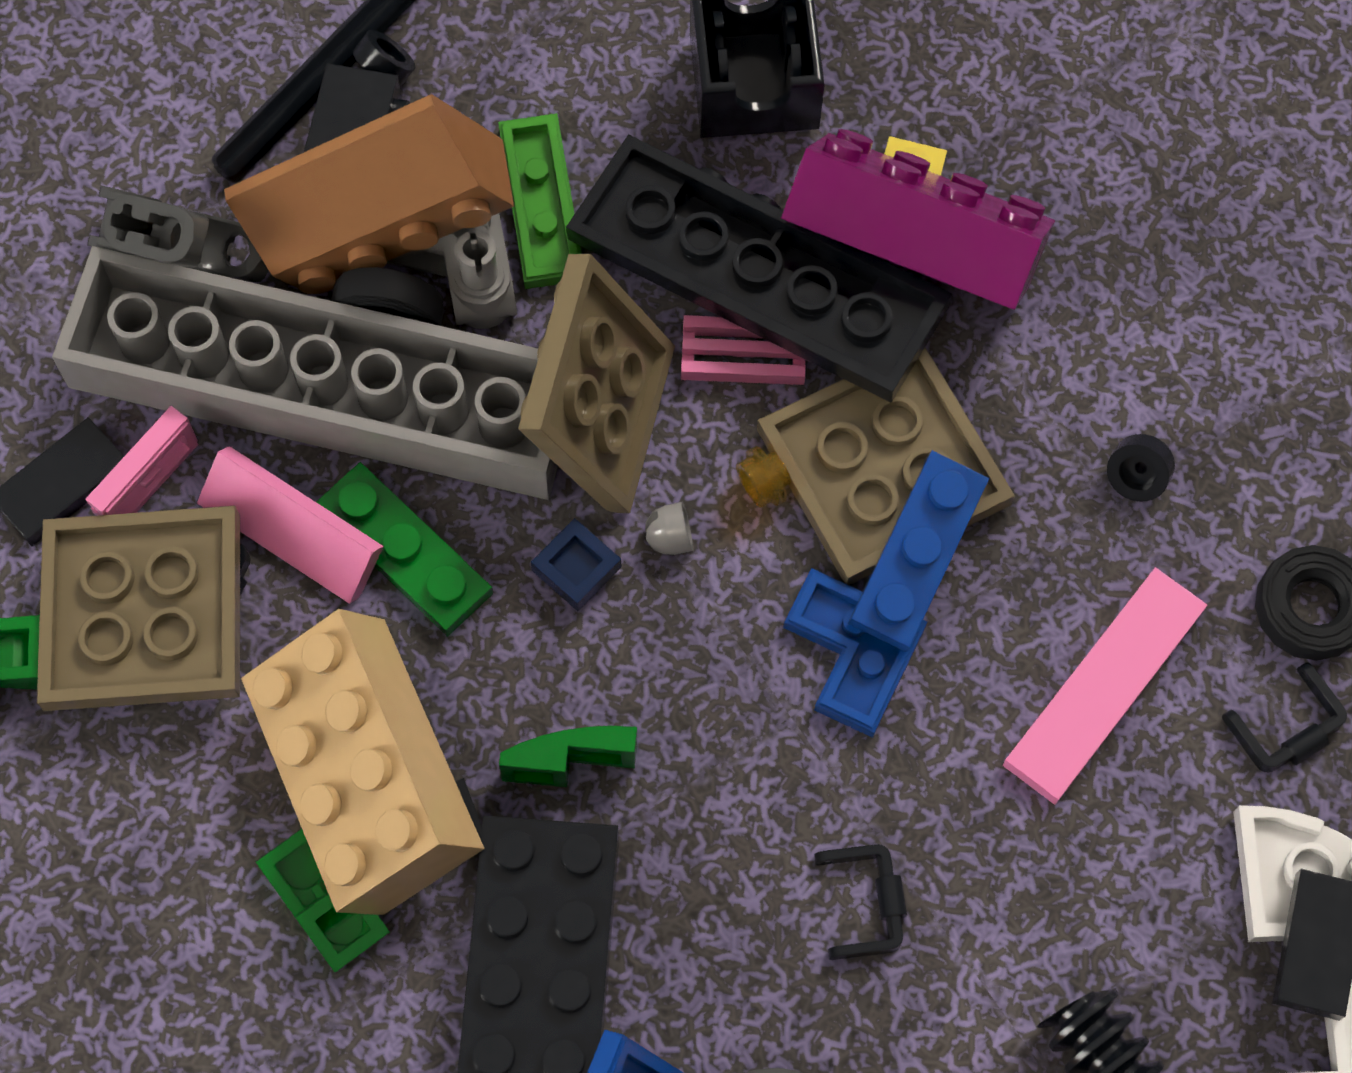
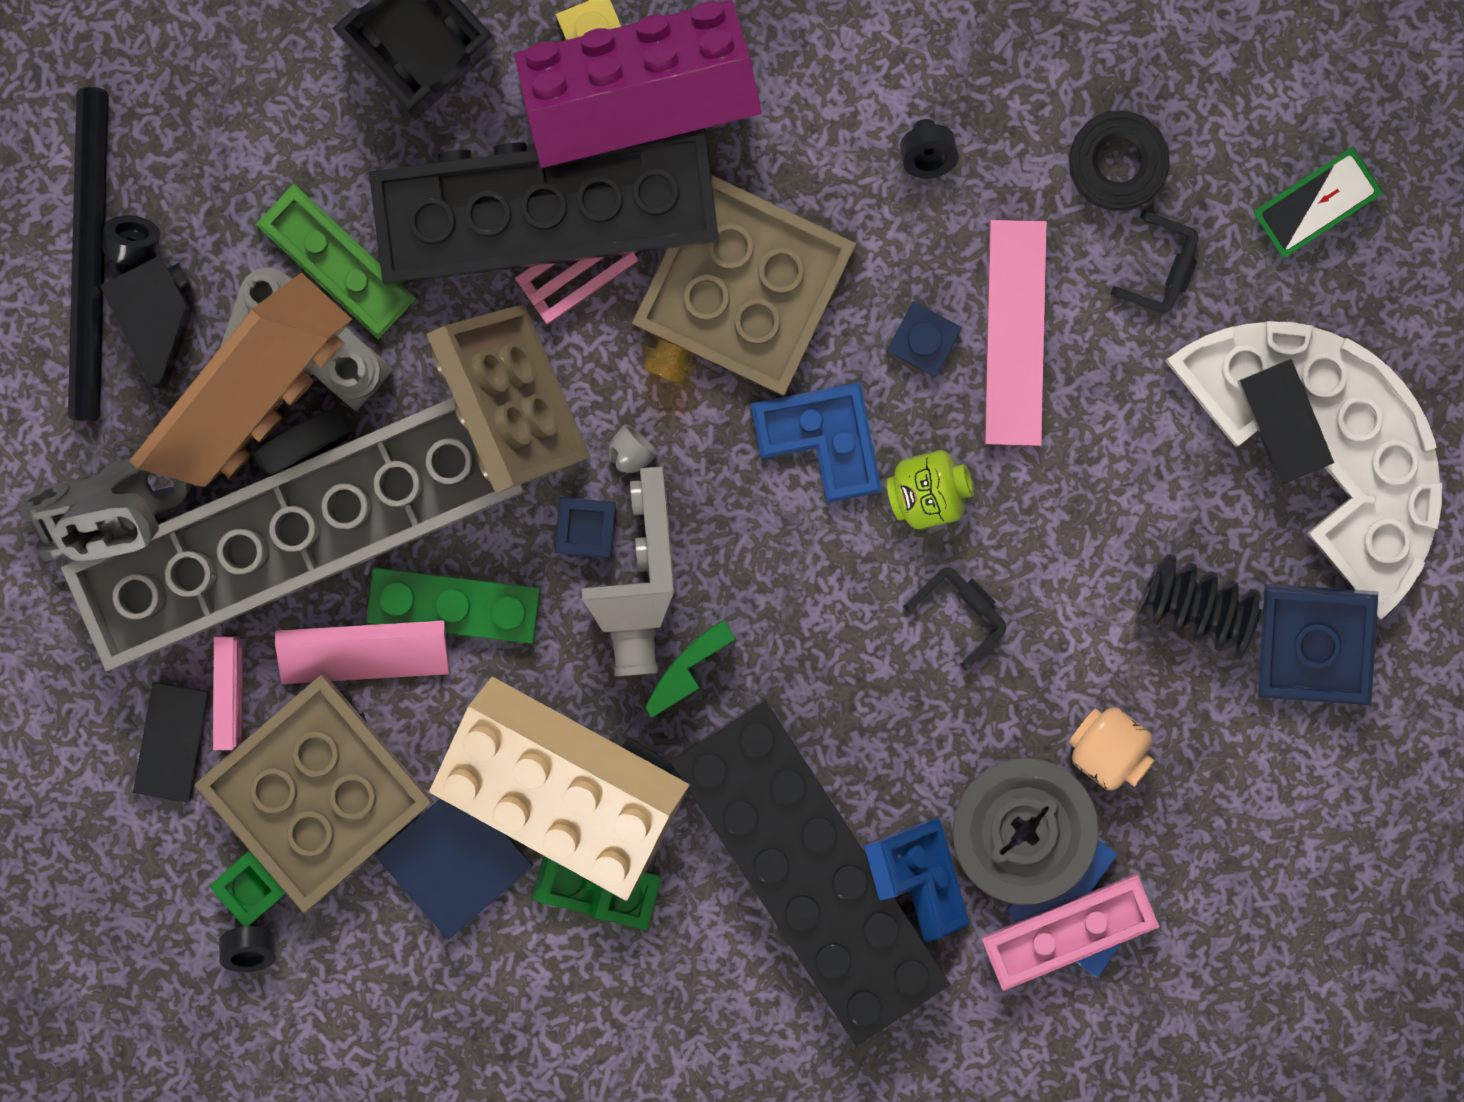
camera: 40 degrees left, 20 degrees up
(210, 775) = (452, 865): none -> dark blue tile
(580, 657) = (638, 608): none -> light grey plate
(918, 551) = (820, 340): blue plate -> none
(921, 760) = (929, 490): none -> lime head
(1015, 629) = (924, 339): none -> dark blue plate

